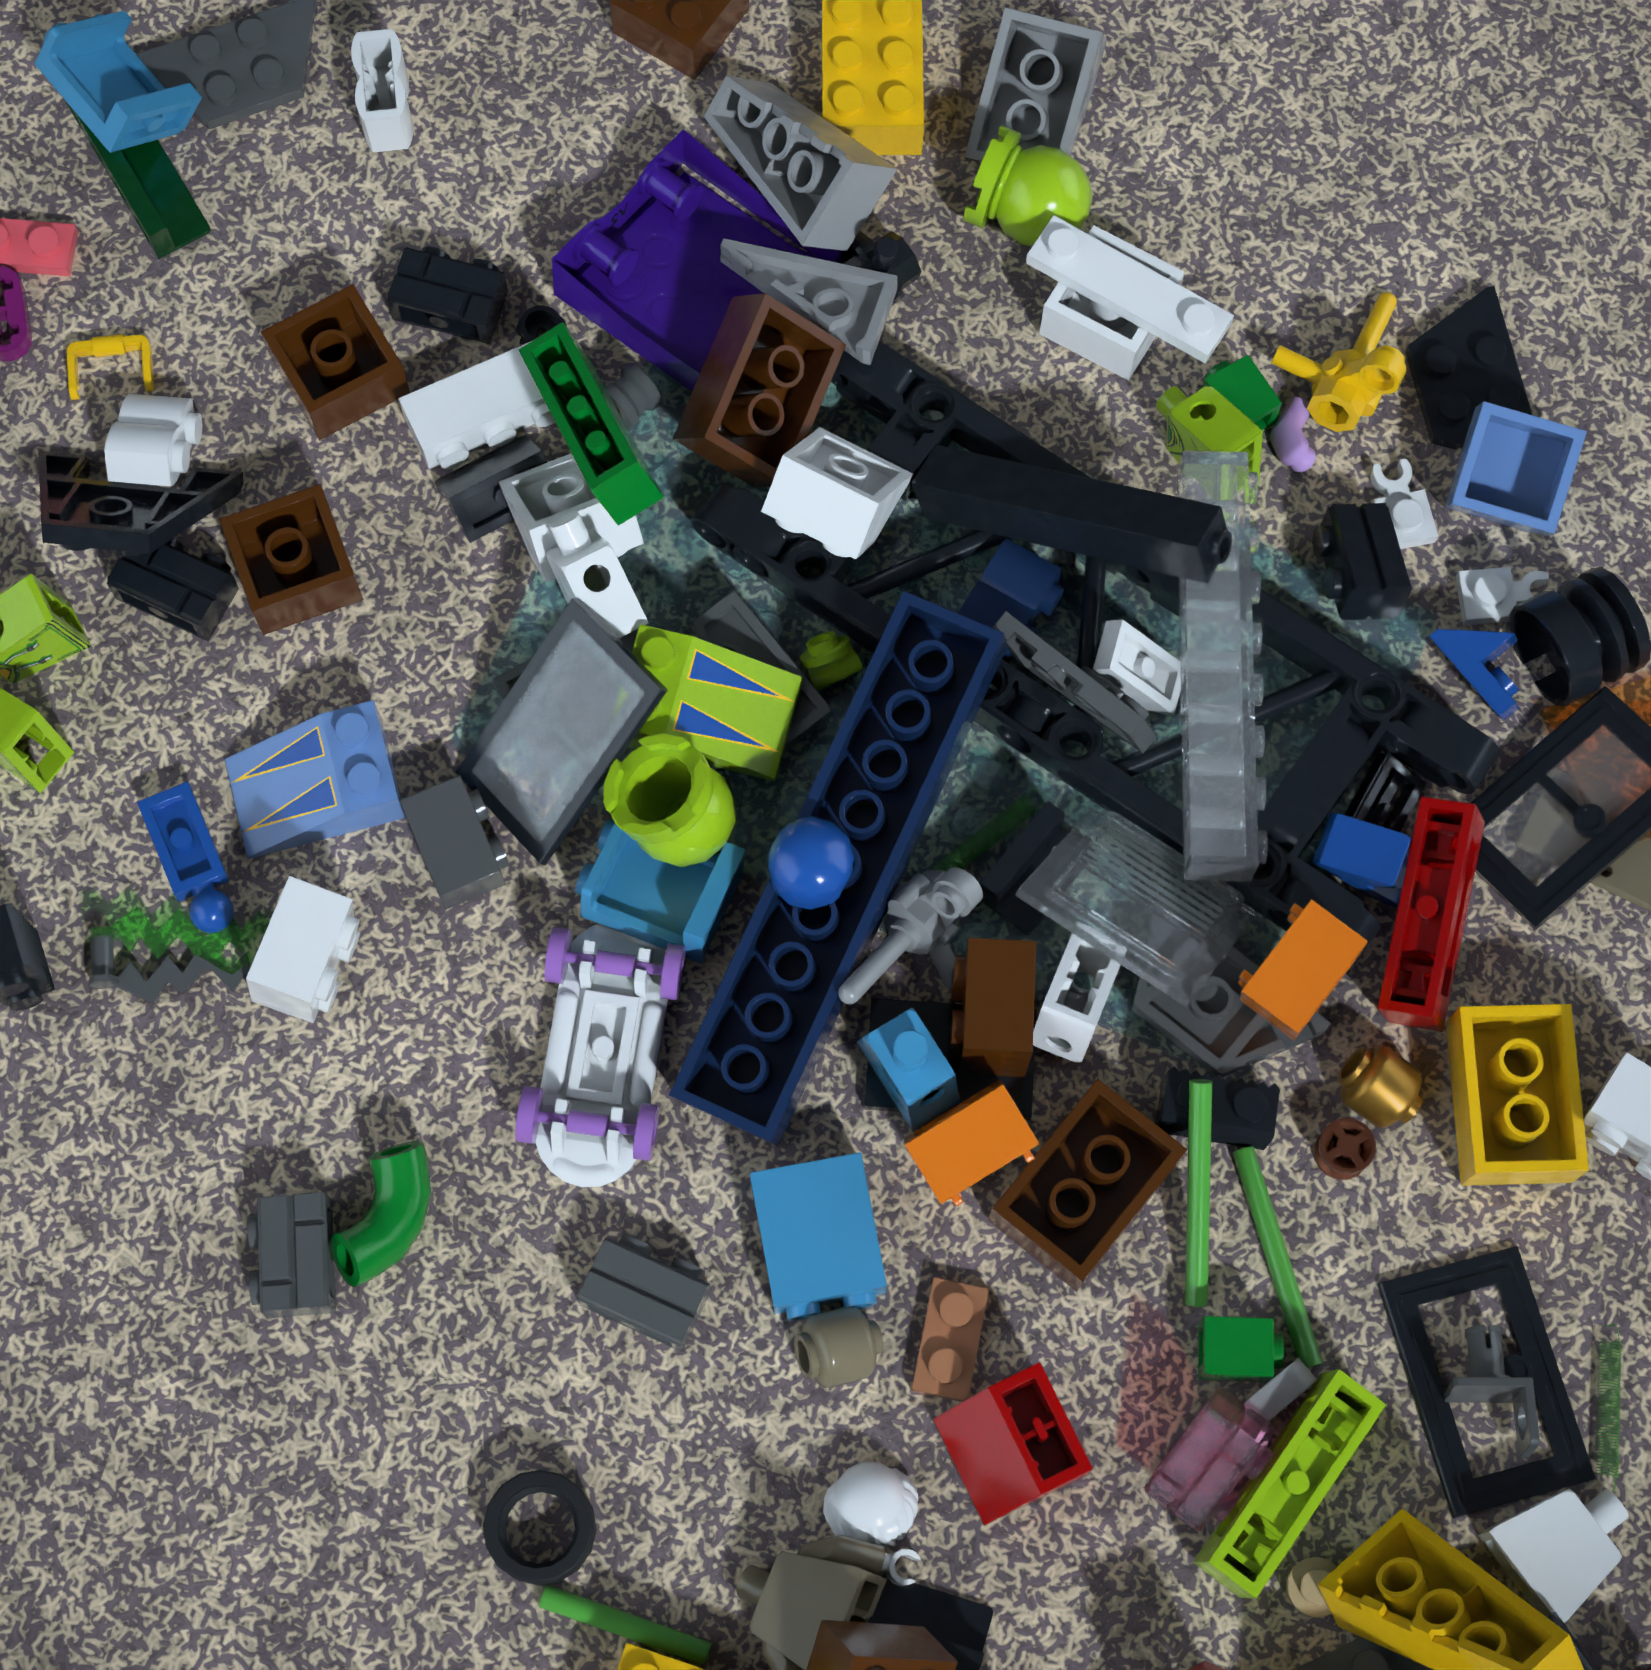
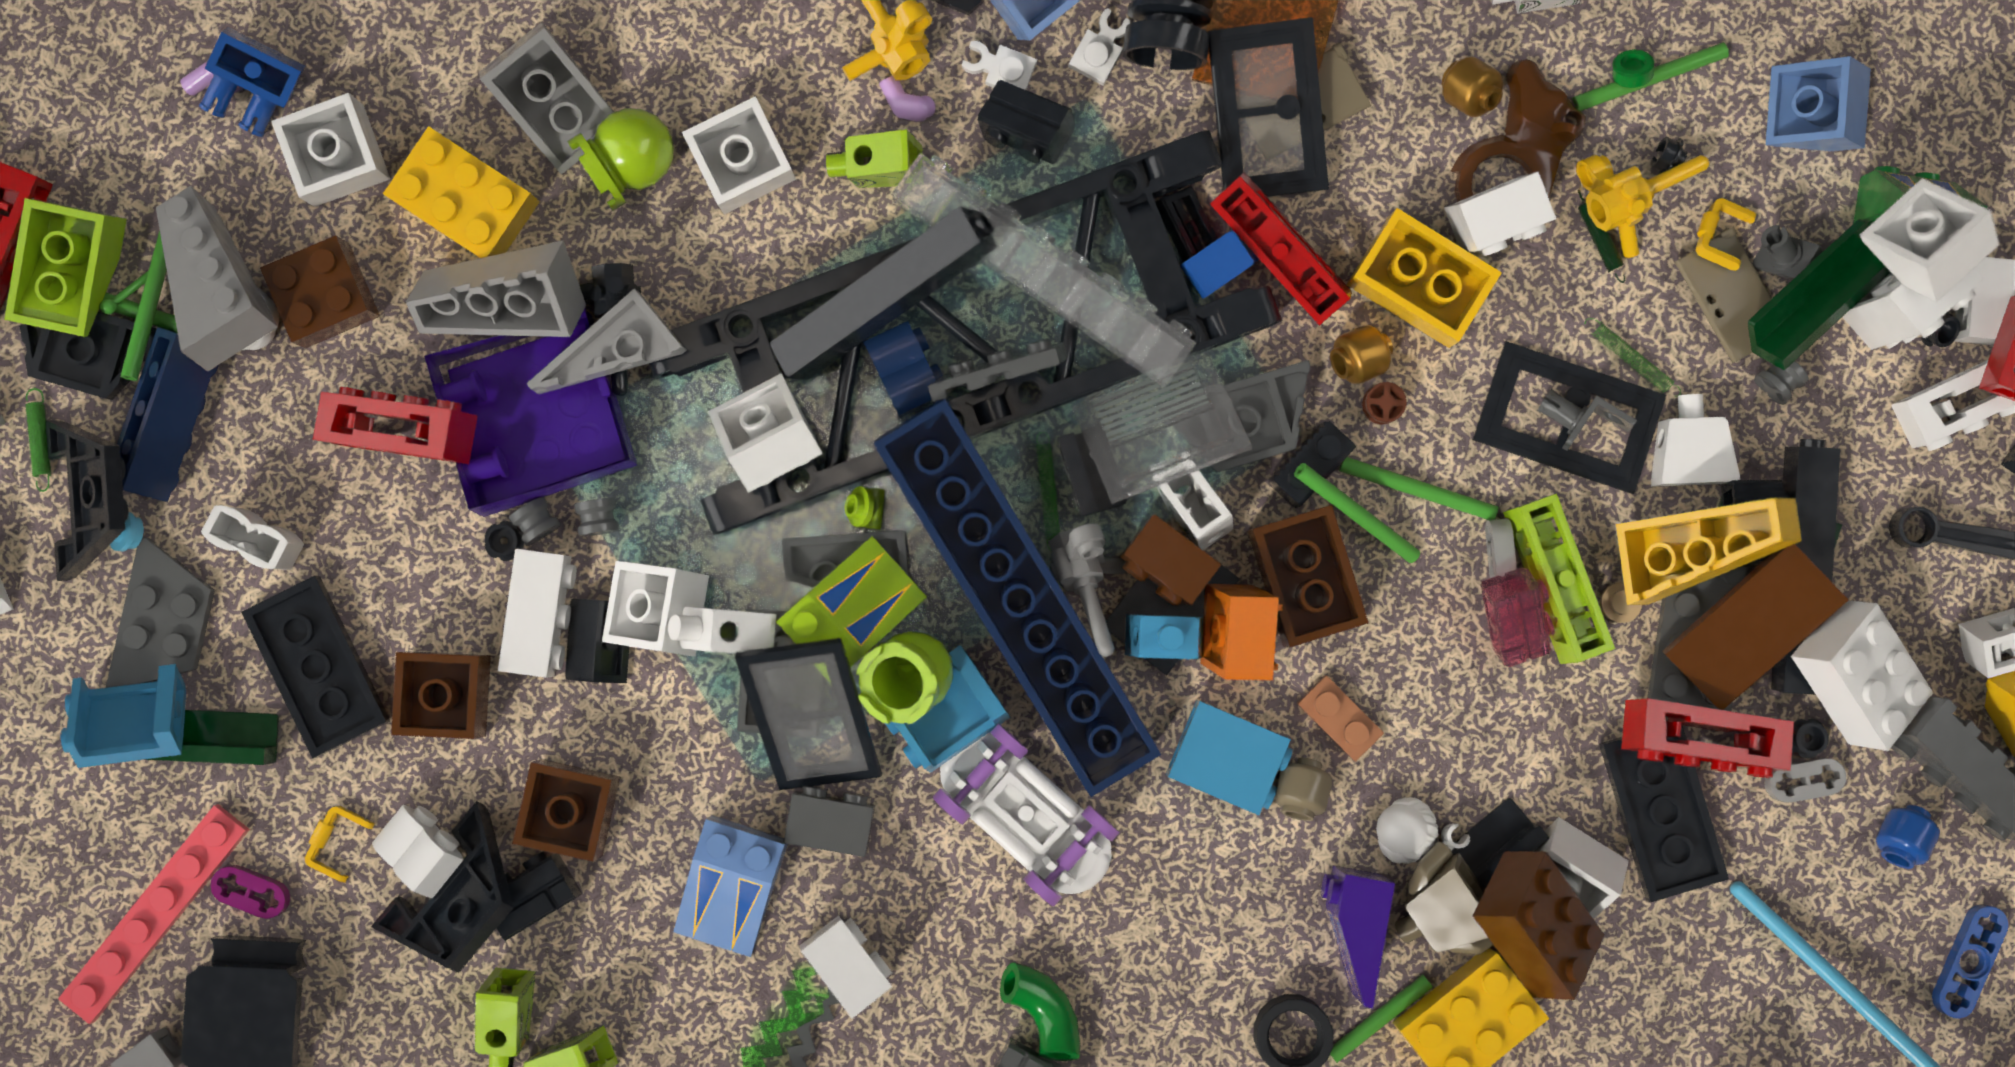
camera: 60 degrees left, 15 degrees up
(188, 855) = (727, 995): blue plate -> none
(285, 232) = (315, 666): none -> black plate
(448, 294) = (436, 587): black brick -> none
(590, 424) = (614, 565): green brick -> none
(592, 336) = (534, 521): none -> dark grey wheel
(622, 179) = (447, 429): none -> red brick
(645, 1292) = (1195, 883): dark grey brick -> none
(728, 1502) = (1359, 917): none -> dark purple slope
(758, 388) = (657, 434): reddish brown brick -> none
(810, 862) = (1010, 619): blue hair -> none
(1012, 1444) = (1429, 725): red slope -> none
(1129, 289) = (745, 142): white plate -> none
(1138, 668) = (1005, 318): white slope -> none
(1238, 1349) = (1460, 552): green brick -> none
(1246, 389) = (858, 116): green brick -> none
(1301, 969) = (1278, 362): orange container -> none
(1472, 654) = (1130, 100): blue slope -> none

